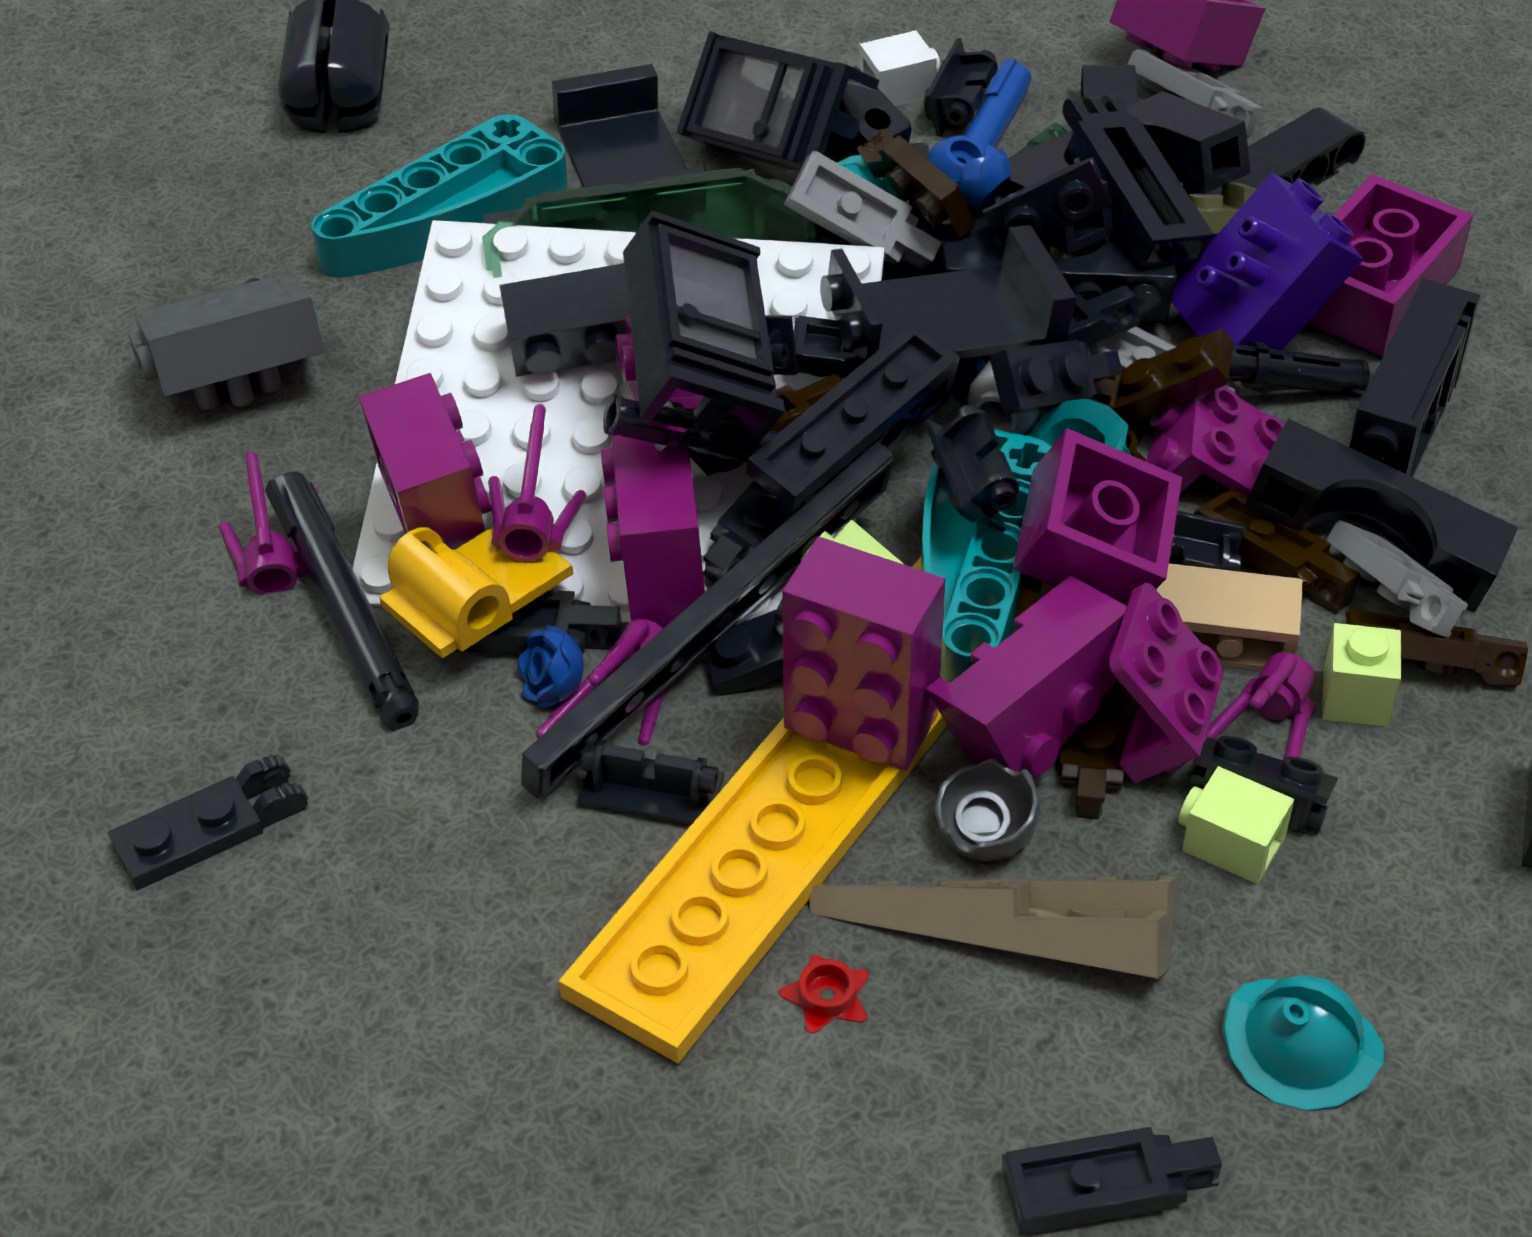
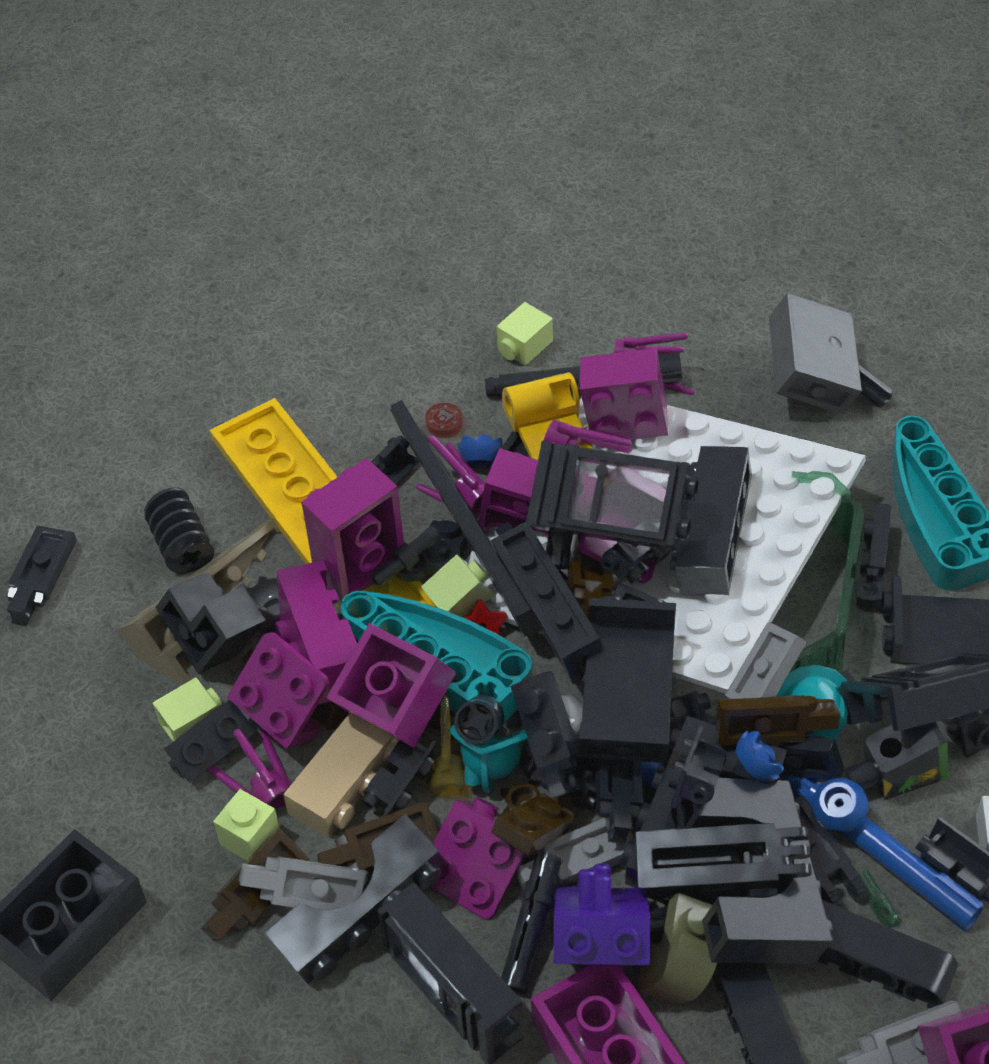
camera: 115 degrees right, 5 degrees up
(207, 821) = (461, 300): black hinge -> none
(272, 694) = (524, 334): none -> yellowish green brick
(494, 750) = (444, 420): none -> clear red tile
(831, 975) = (219, 501): red plate -> none
(916, 992) = (178, 531): none -> black piece
(974, 466) = (470, 636): black hinge -> none
(1090, 416) = (472, 723): none -> black wheel
(1096, 822) = (208, 622): none -> black brick
(1301, 1041) = (55, 689): teal helmet -> none

